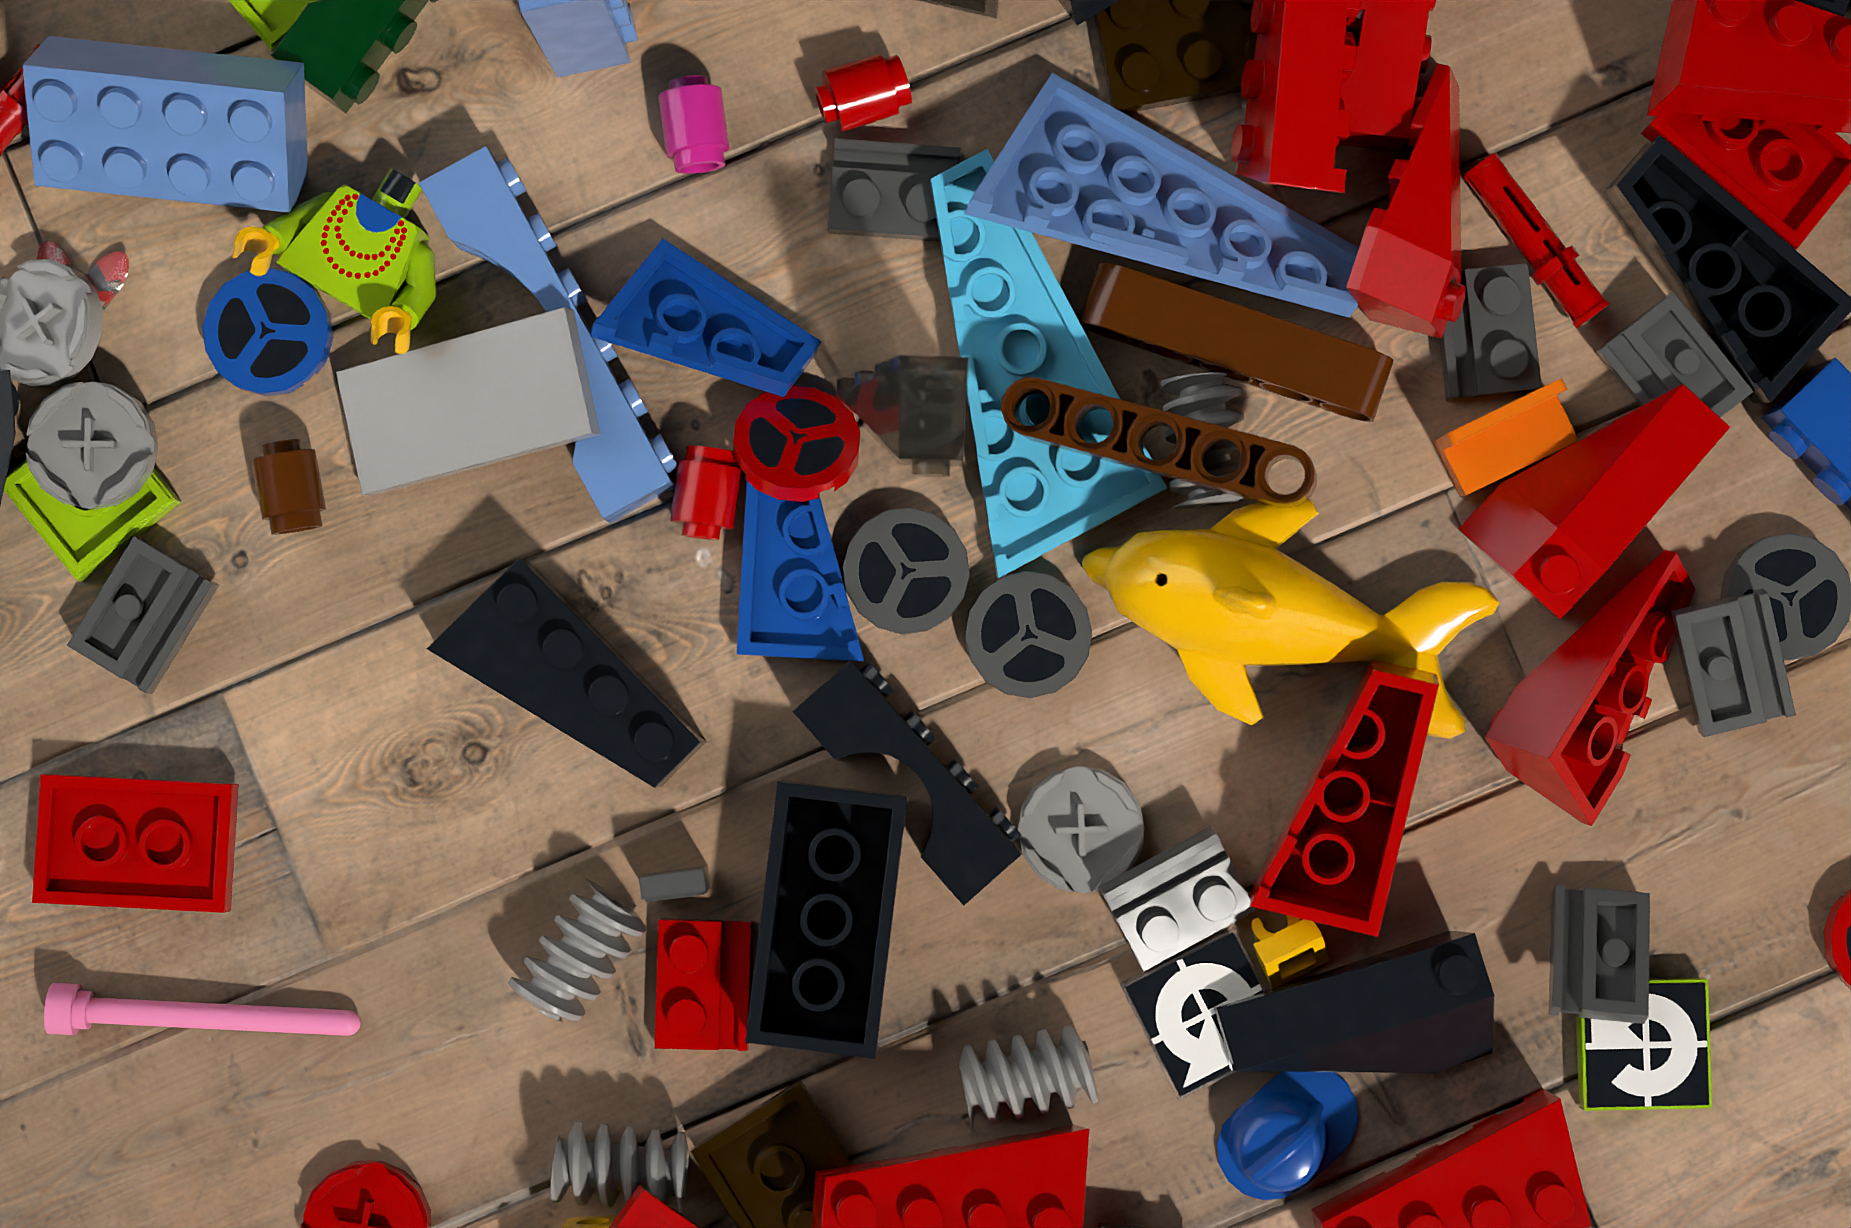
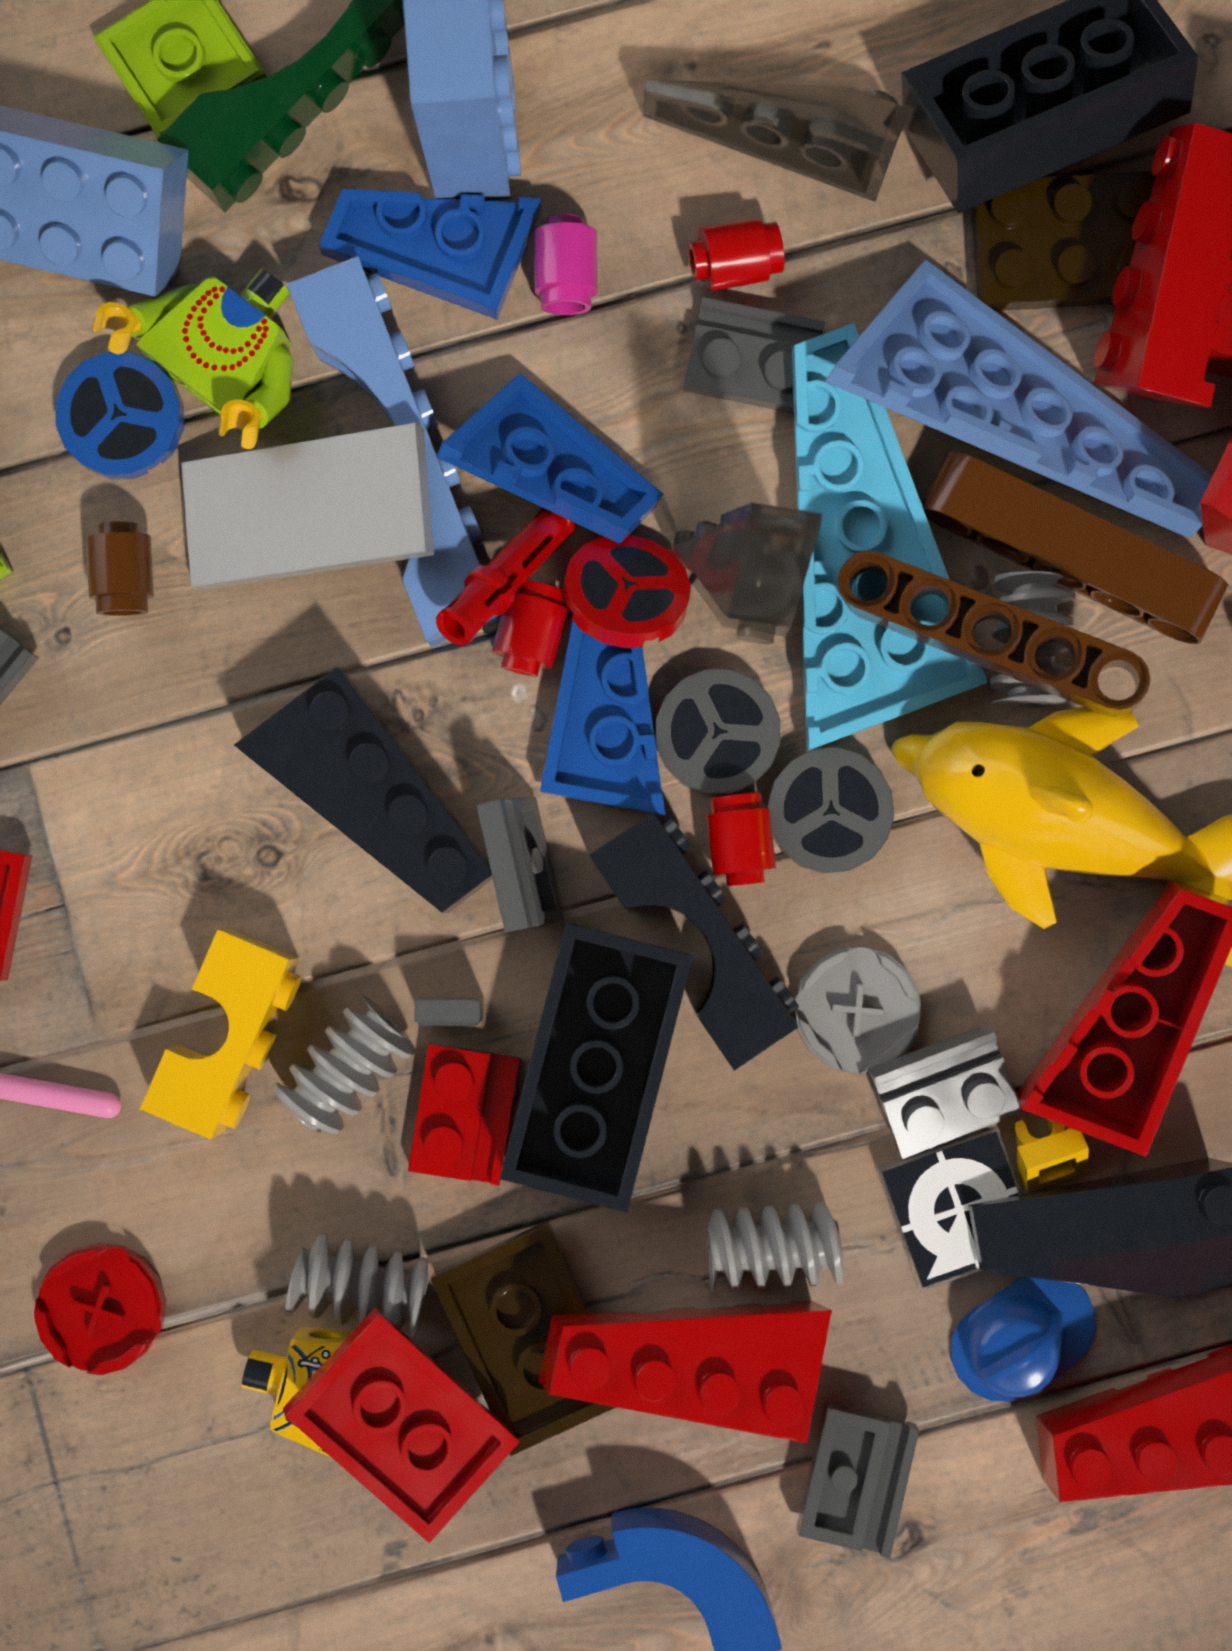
camera: 10 degrees right, 0 degrees up
(474, 883) = (206, 1089): none -> yellow arch
(564, 122) = (438, 246): none -> blue wing
(662, 460) = (492, 587): none -> red pin
(725, 728) = (519, 863): none -> dark grey plate
(942, 675) = (740, 838): none -> red brick

